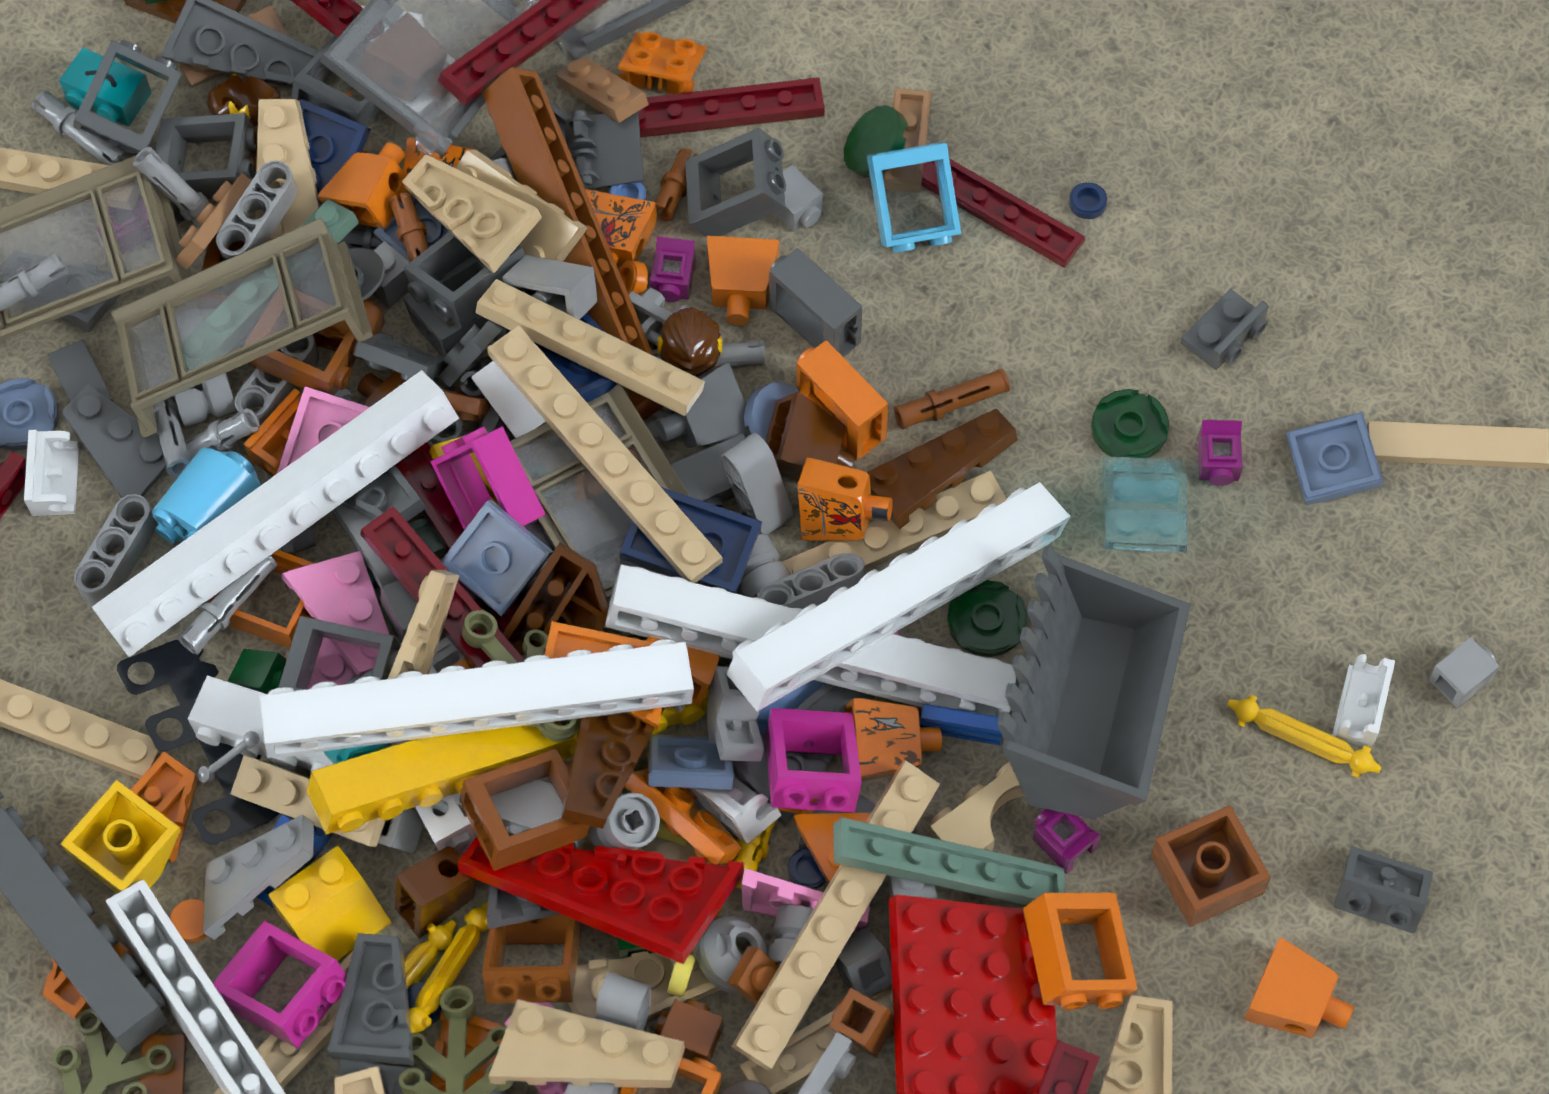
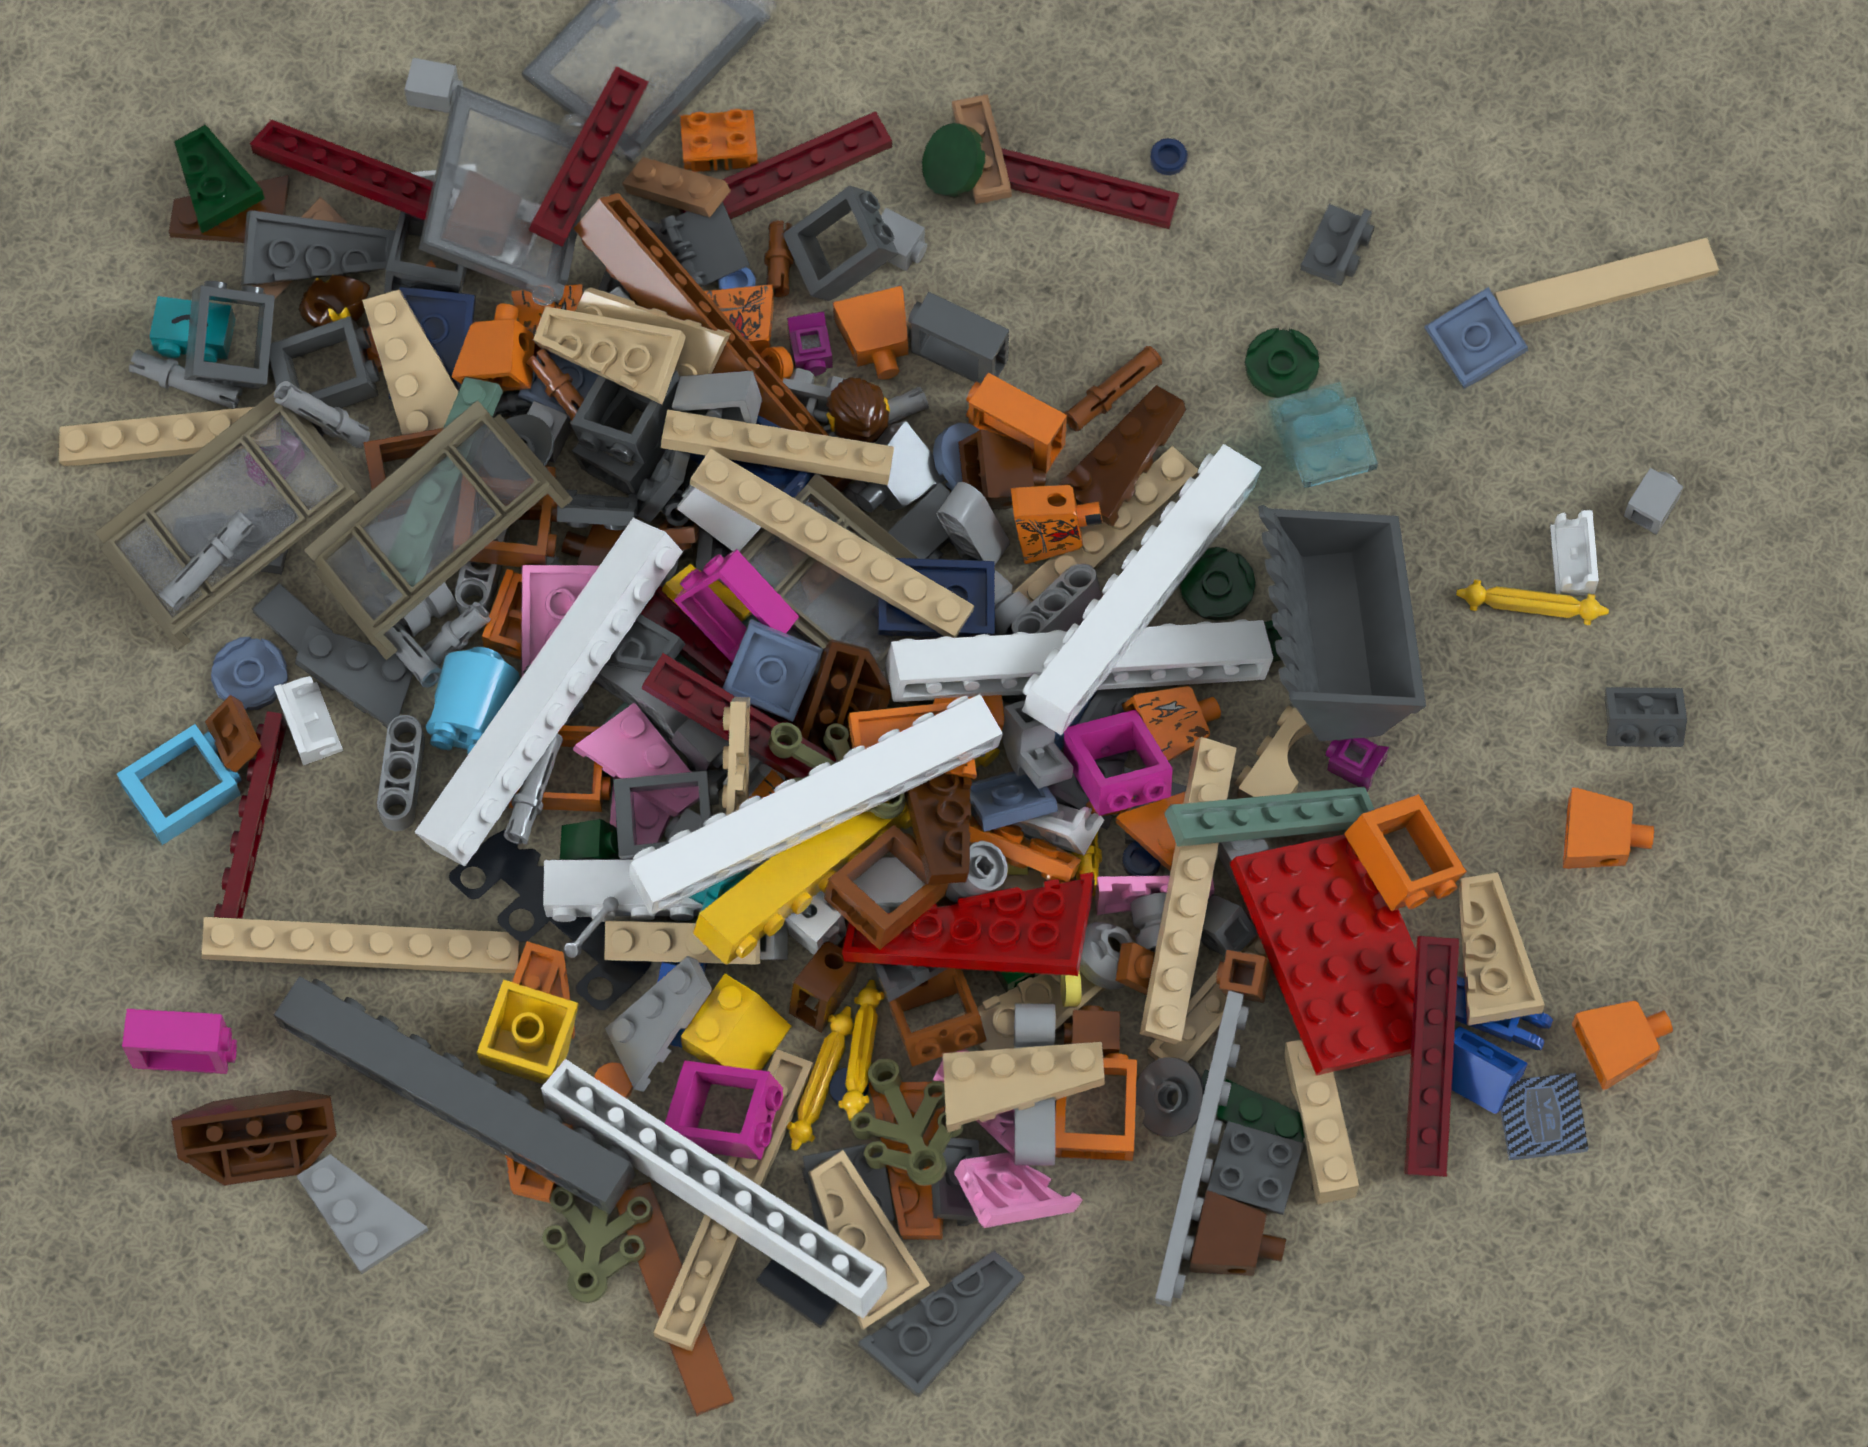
camera: 20 degrees left, 5 degrees up
(211, 220) = (367, 431): medium nougat plate -> none
(258, 197) = (406, 396): light grey beam -> none
(374, 1005) = (814, 1100): dark grey wing -> none
(909, 156) = (1043, 233): medium azure window -> none
(962, 724) = (1233, 686): blue tile -> none
(1210, 866) = (1491, 744): dark orange brick -> none
(1220, 451) = (1372, 364): magenta window -> none

